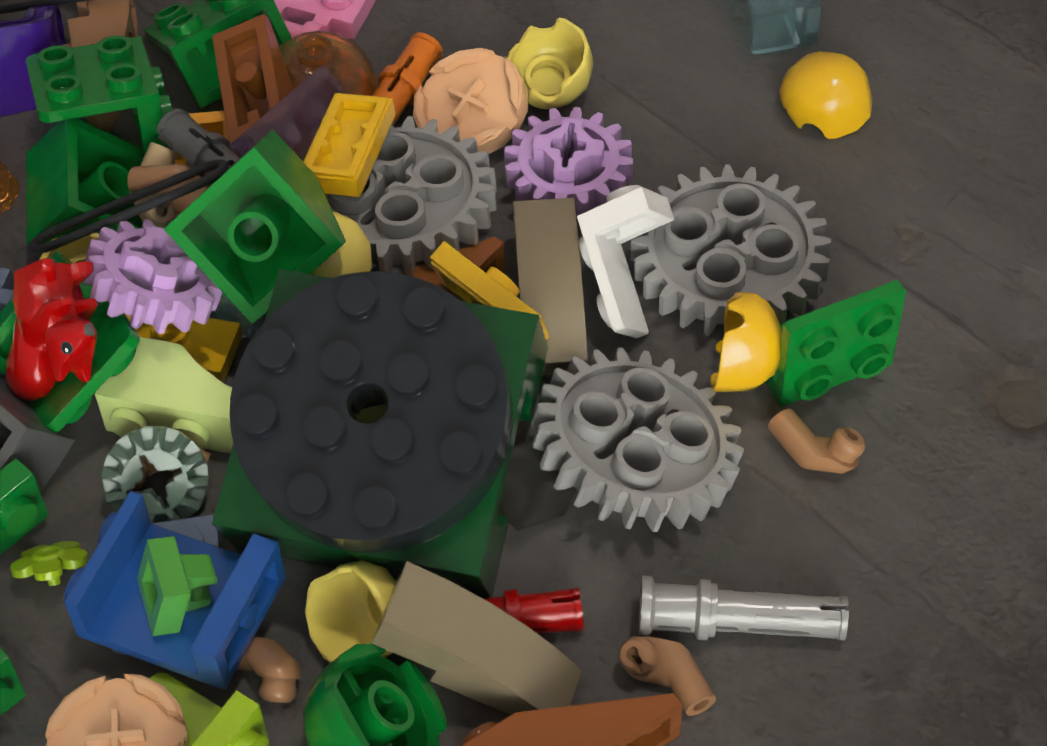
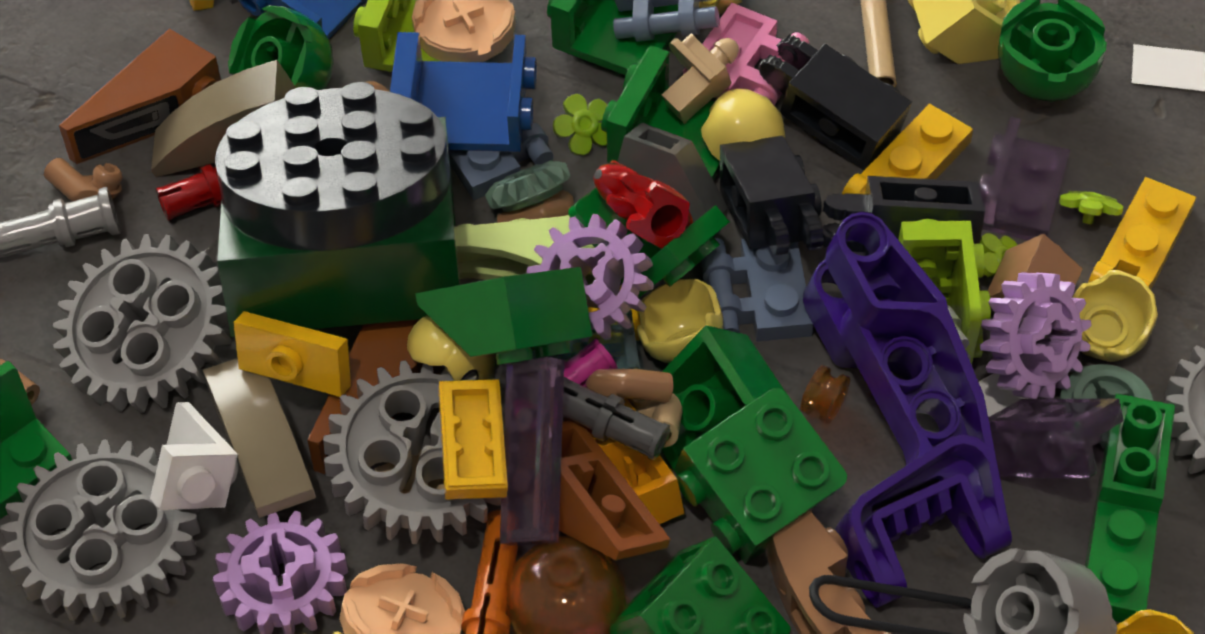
camera: 160 degrees right, 0 degrees up
(172, 584) = (457, 83): bright green tile -> none
(219, 167) = (588, 325): black piece -> none
(749, 344) = (60, 402): yellow hair -> none

